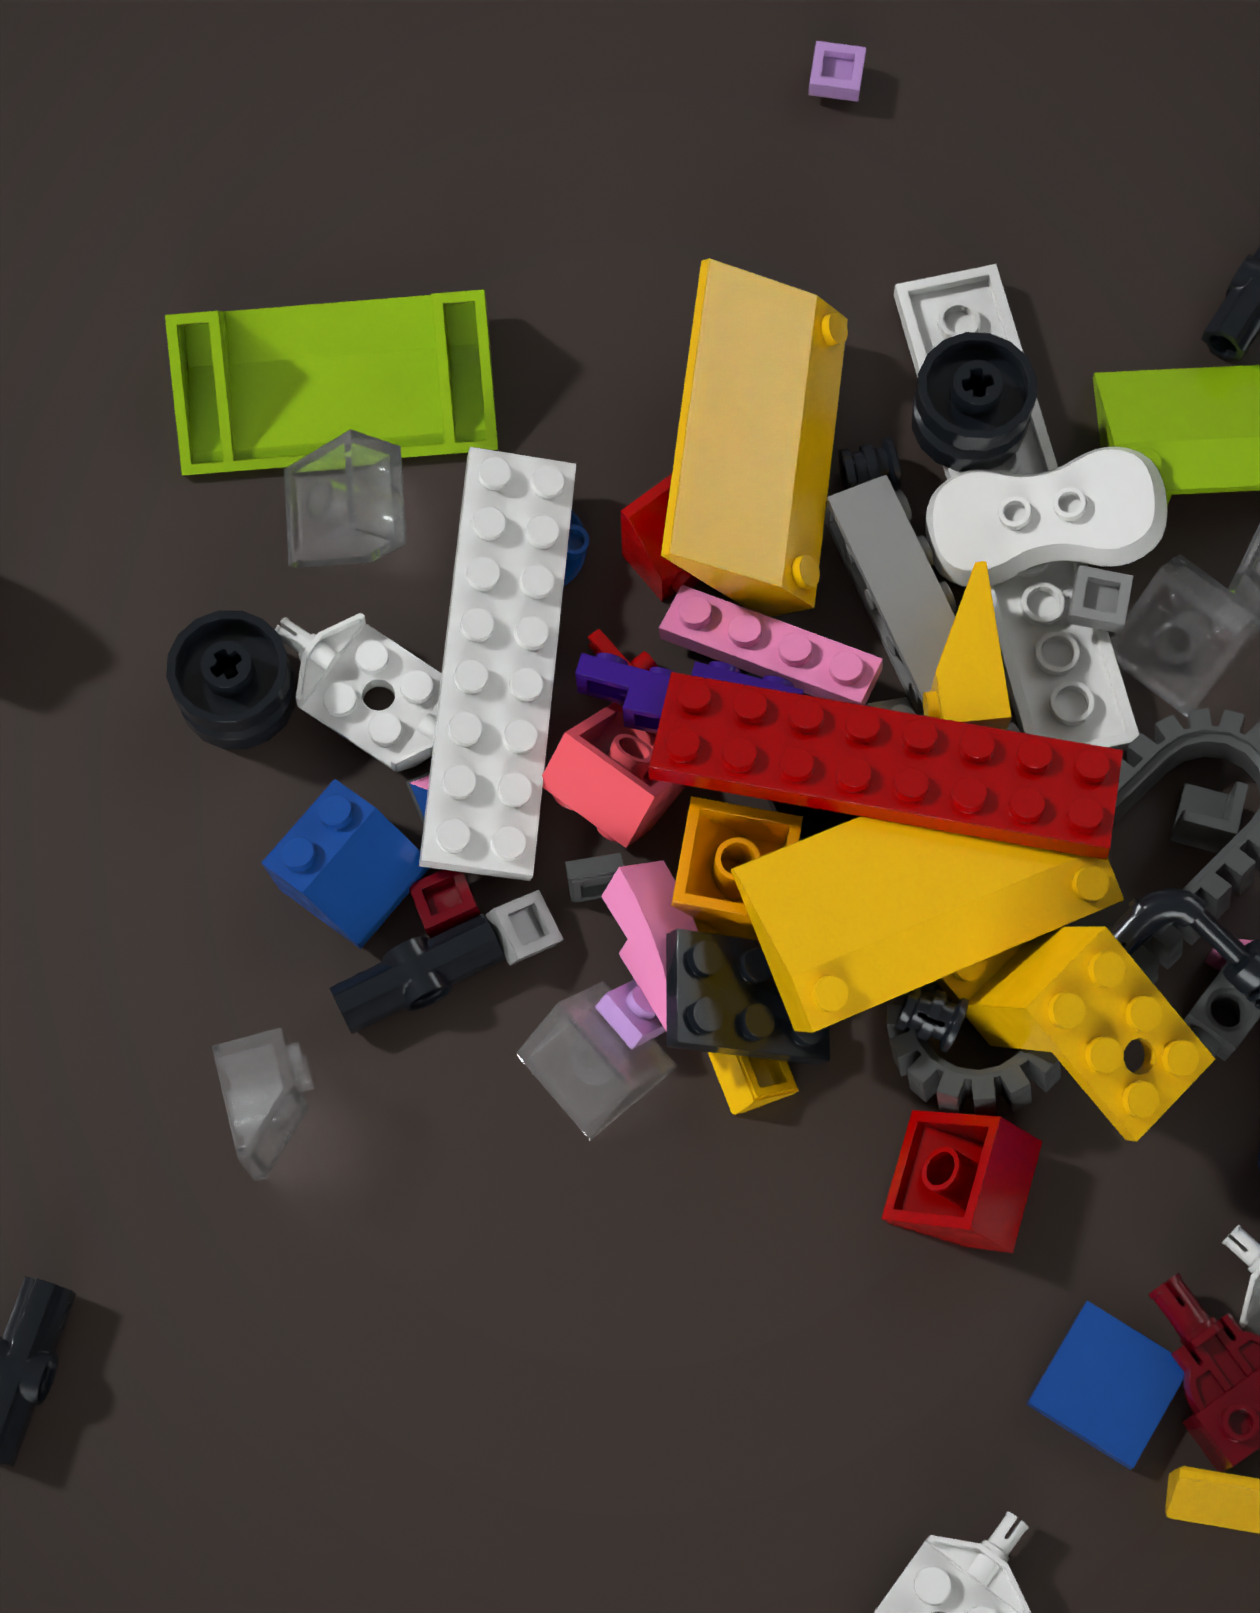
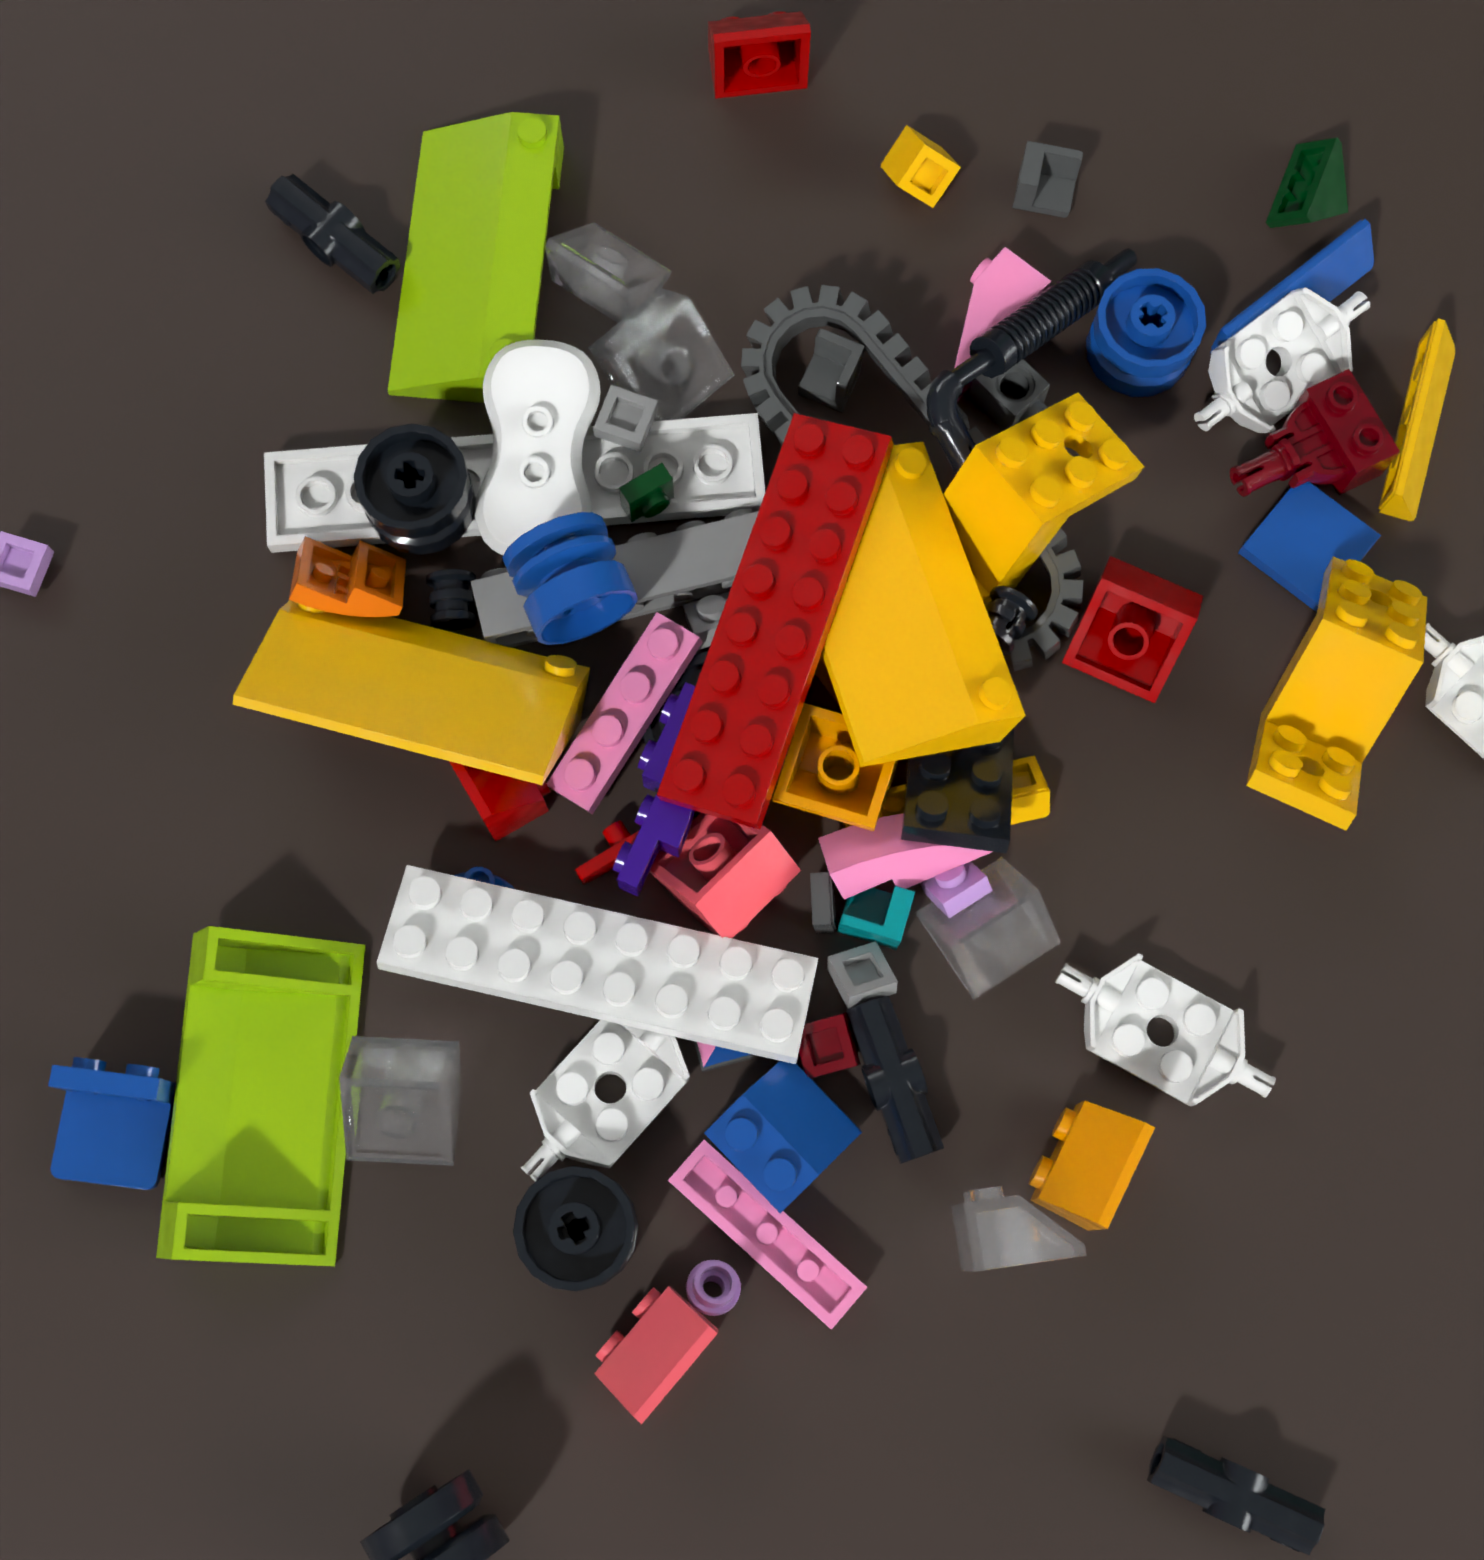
camera: 85 degrees left, 5 degrees up
(118, 770) = (655, 1351): none -> coral slope
(198, 808) = (717, 1272): none -> lavender plate
(236, 875) = (767, 1235): none -> bright pink plate
(295, 255) = (112, 1124): none -> blue bracket
(344, 1179) = (1090, 1164): none -> light orange slope
(503, 1205) = (1206, 1039): none -> white plate
(590, 938) = (877, 916): none -> teal panel
(865, 360) = (343, 584): none -> orange slope
(892, 553) = (569, 578): none -> blue wheel
(916, 1405) = (1339, 691): none -> yellow bracket
(970, 673) = (687, 535): yellow slope -> none
(1018, 631) = (647, 493): none -> dark green plate

